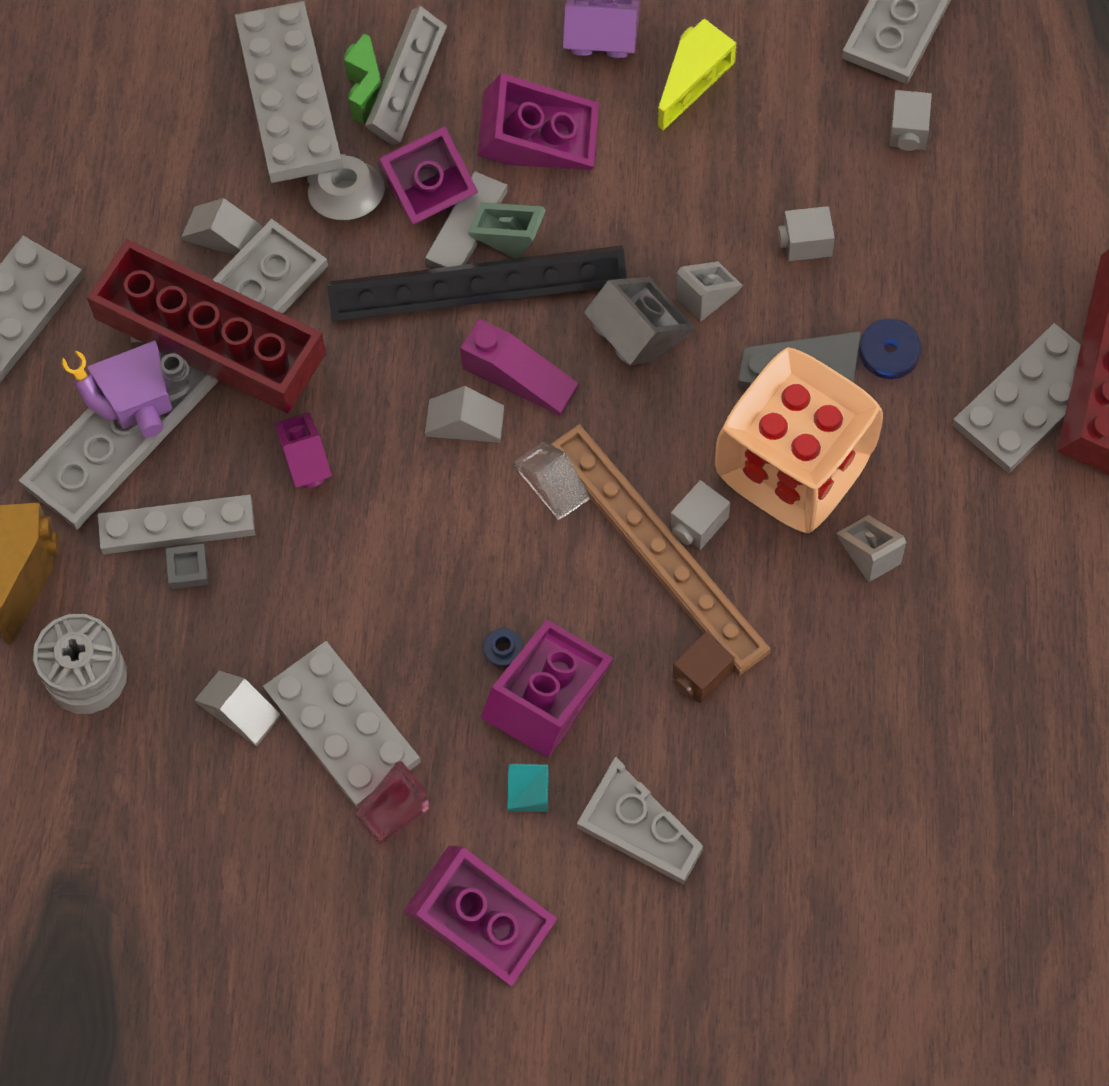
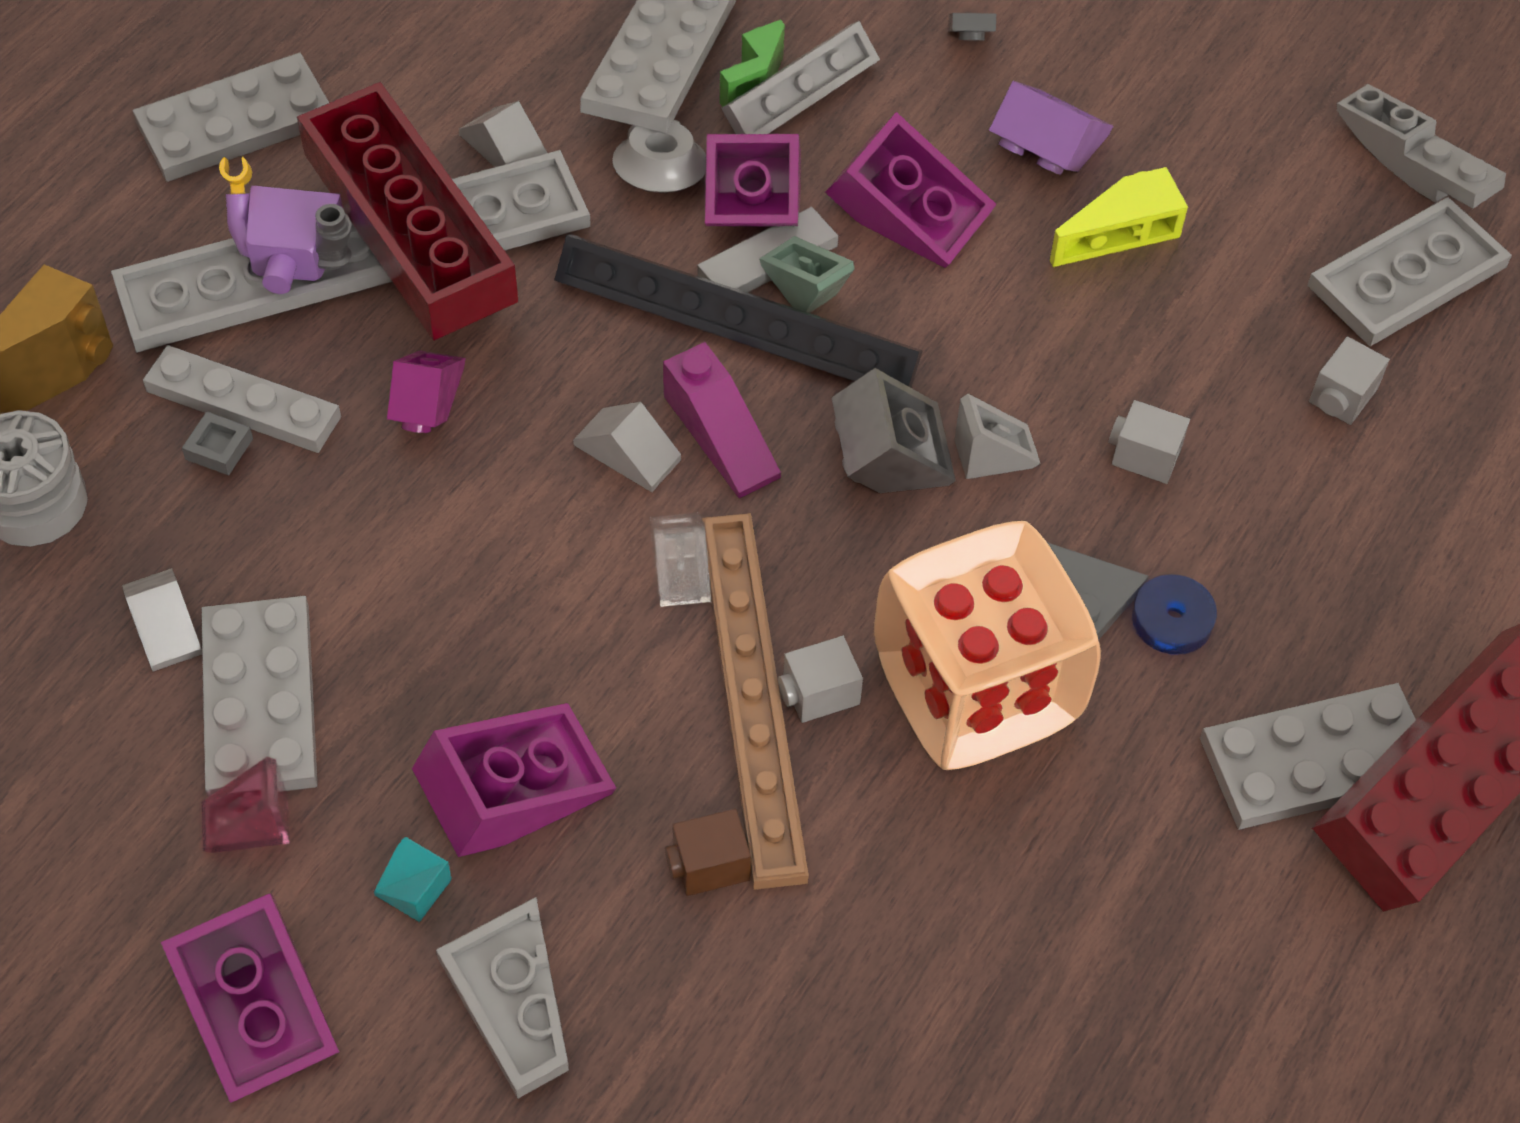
camera: 25 degrees right, 10 degrees down
(498, 657) = (491, 694): dark blue plate -> none
(873, 546) = (1010, 825): light grey slope -> none

